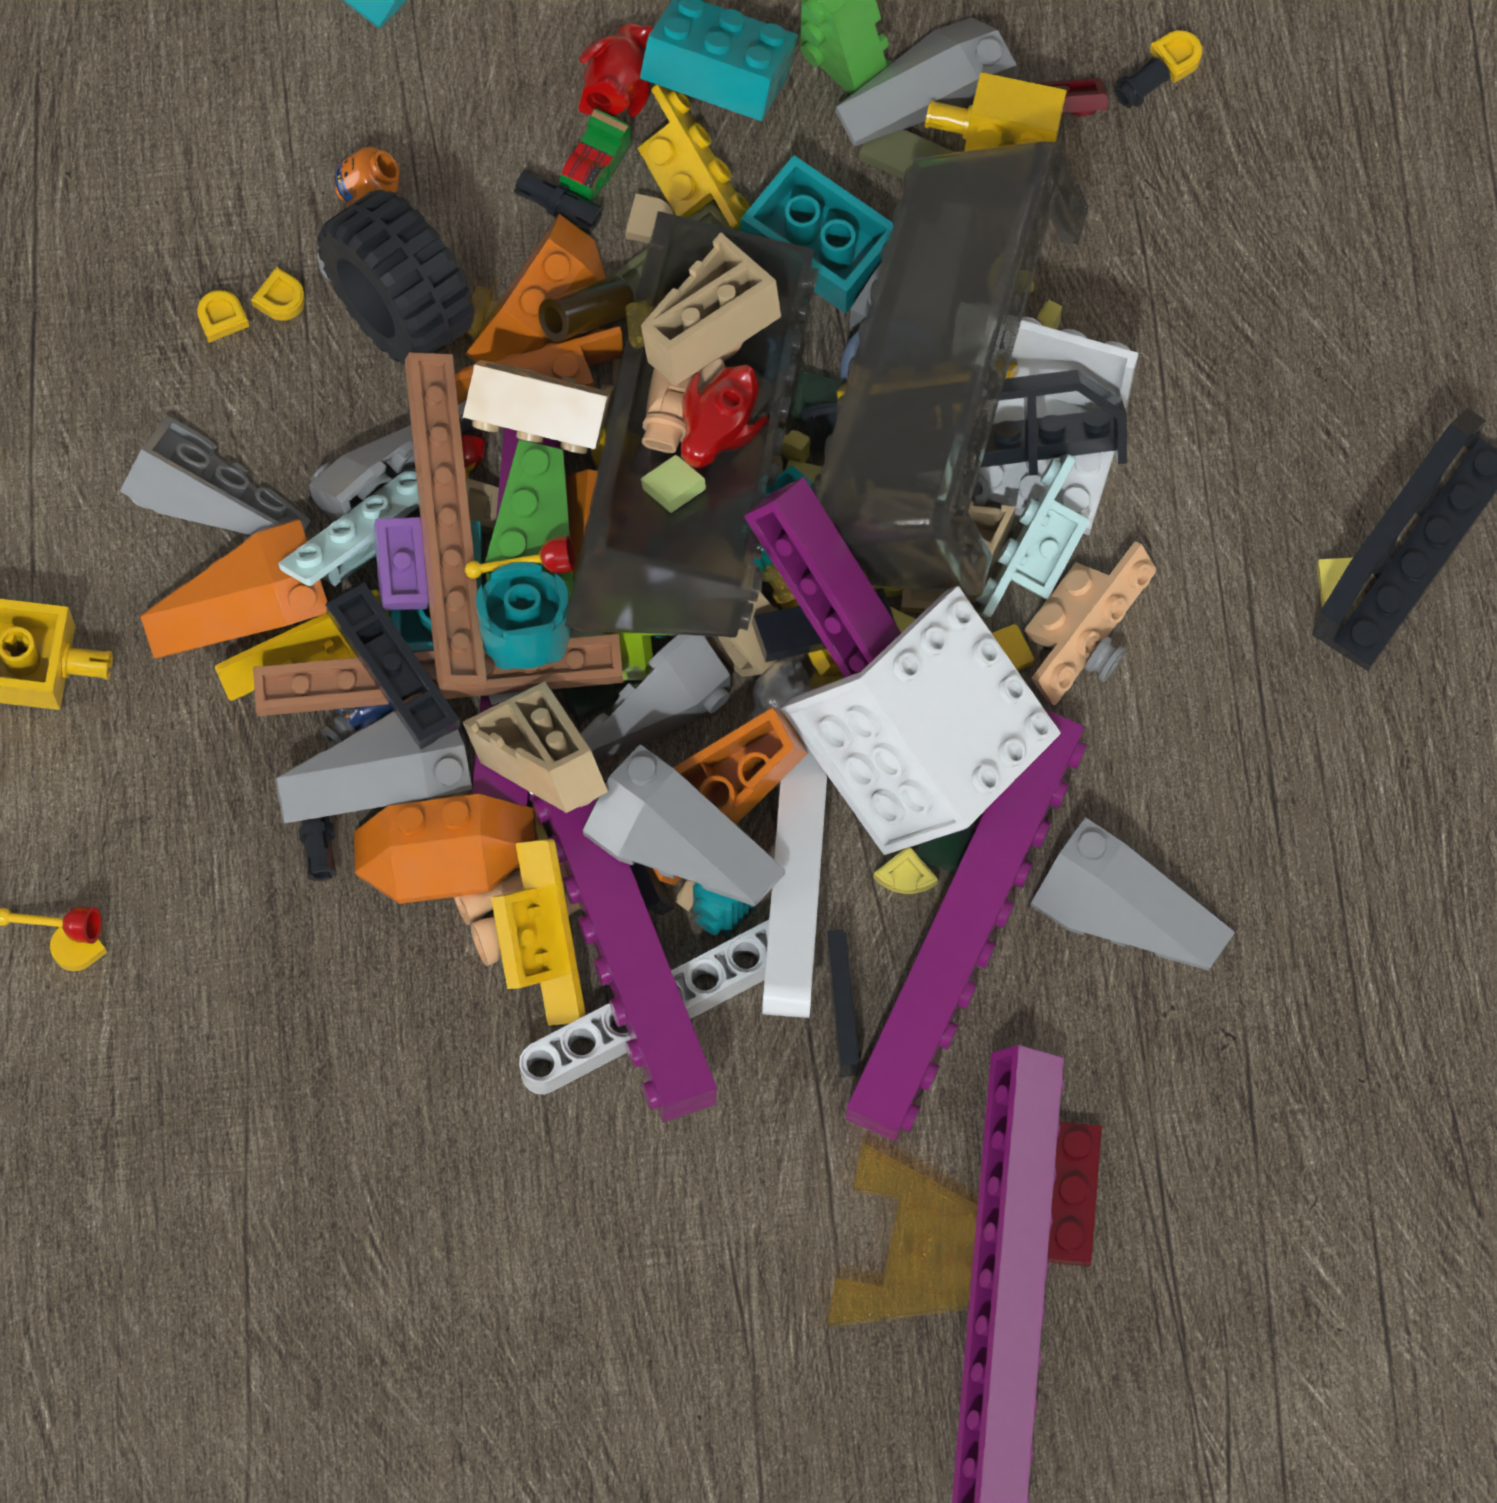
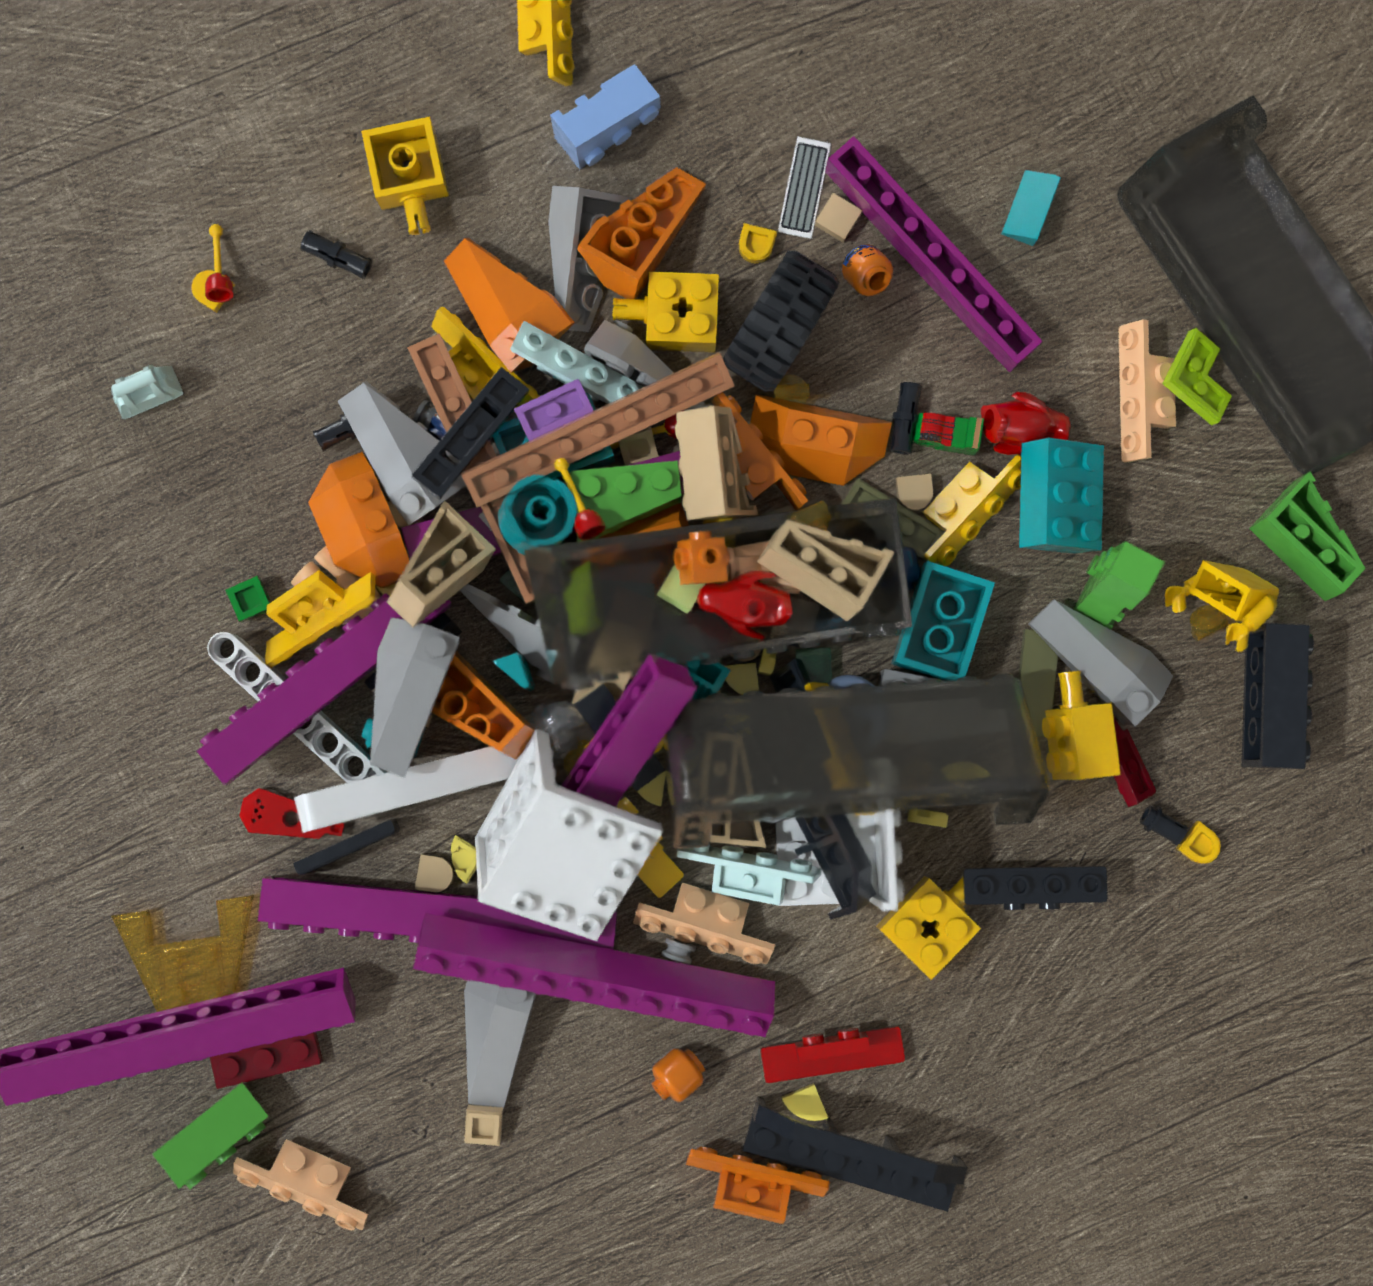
camera: 70 degrees right, 15 degrees up
(60, 407) = (606, 117): none -> light blue wedge
(94, 779) = (336, 254): none -> black pin
(173, 1068) = (145, 390): none -> light aqua piece
(217, 416) = (638, 234): none -> orange wedge
(221, 315) = (725, 205): yellow tile -> none
(234, 223) = (804, 187): none -> sticker
(287, 196) = (838, 217): none -> tan tile
(356, 396) = (660, 311): none -> yellow brick
(377, 102) = (932, 254): none -> magenta brick
(488, 1022) = (248, 598): none -> green plate
(585, 308) = (815, 471): dark brown brick -> none
(650, 440) = (702, 559): none -> orange brick
(701, 722) = (518, 669): none -> teal slope
(768, 1082) = (274, 816): none -> red piece
(911, 915) = (434, 873): none -> tan tile
(1100, 751) = (595, 975): none -> magenta brick
(1151, 1285) = (211, 1137): none -> bright green wedge
(1164, 234) = (1035, 886): none -> black bracket
(1172, 346) = (951, 925): none -> yellow brick
(1242, 956) = (483, 1125): none -> tan tile
(1243, 1190) = (307, 1179): none -> light nougat bracket
(1255, 706) = (677, 1075): none -> orange head
(1288, 529) = (832, 1054): none -> red bracket
(1416, 665) = (755, 1188): none -> orange bracket

